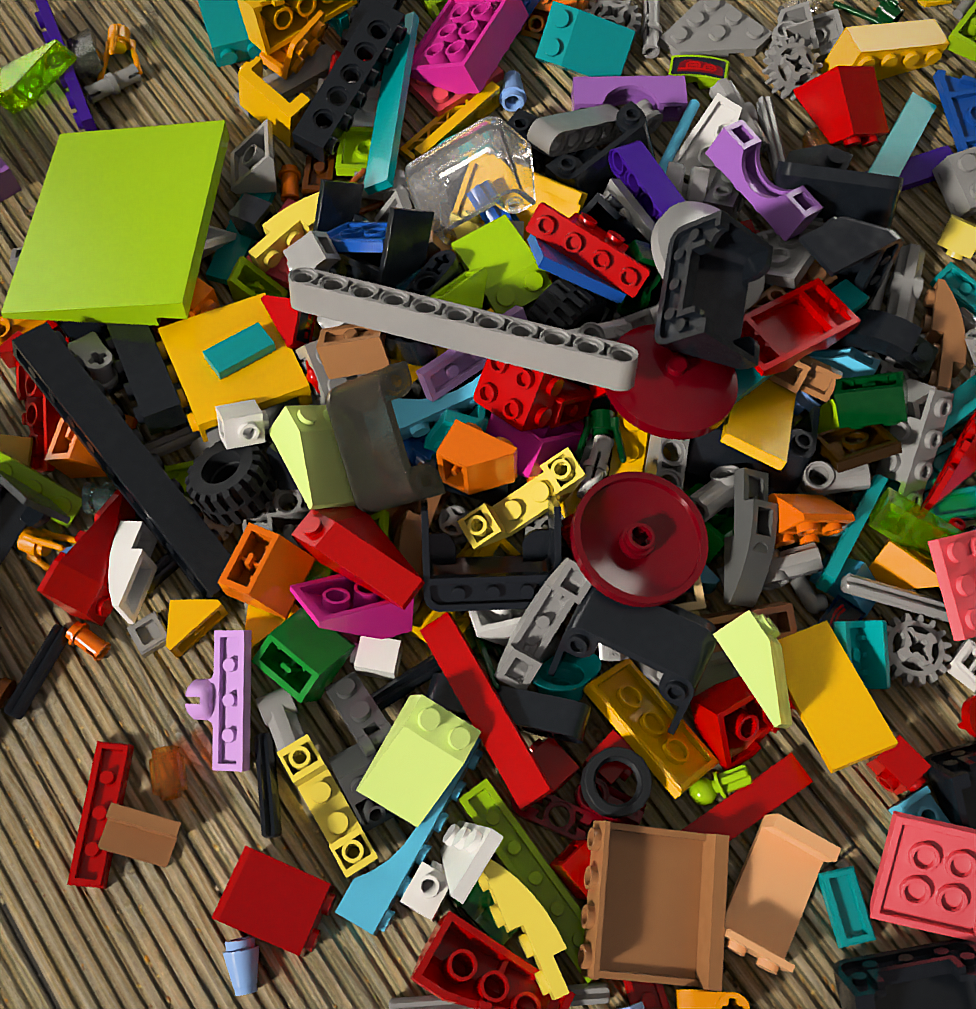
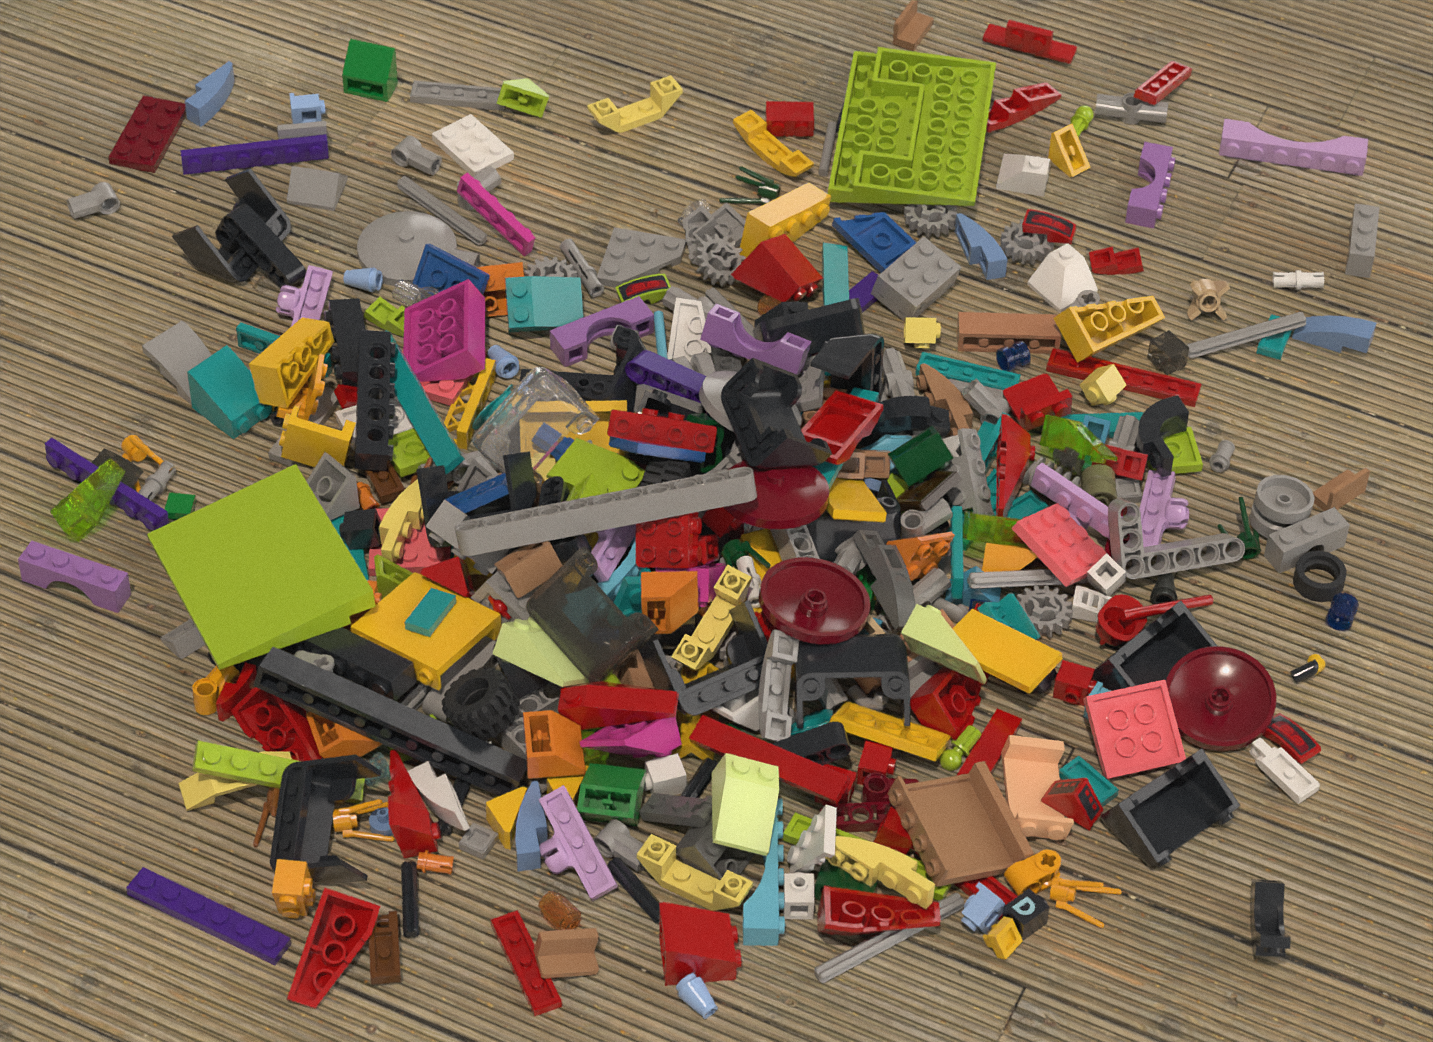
camera: 30 degrees left, 20 degrees down
(120, 115) = (179, 505): none -> green tile
(198, 648) = (530, 830): none -> medium blue slope
(241, 424) = (469, 656): white brick -> none
(575, 130) = (586, 363): light grey beam -> none
(643, 779) = (887, 747): black tyre -> none
(812, 929) = (1074, 800): none -> red slope

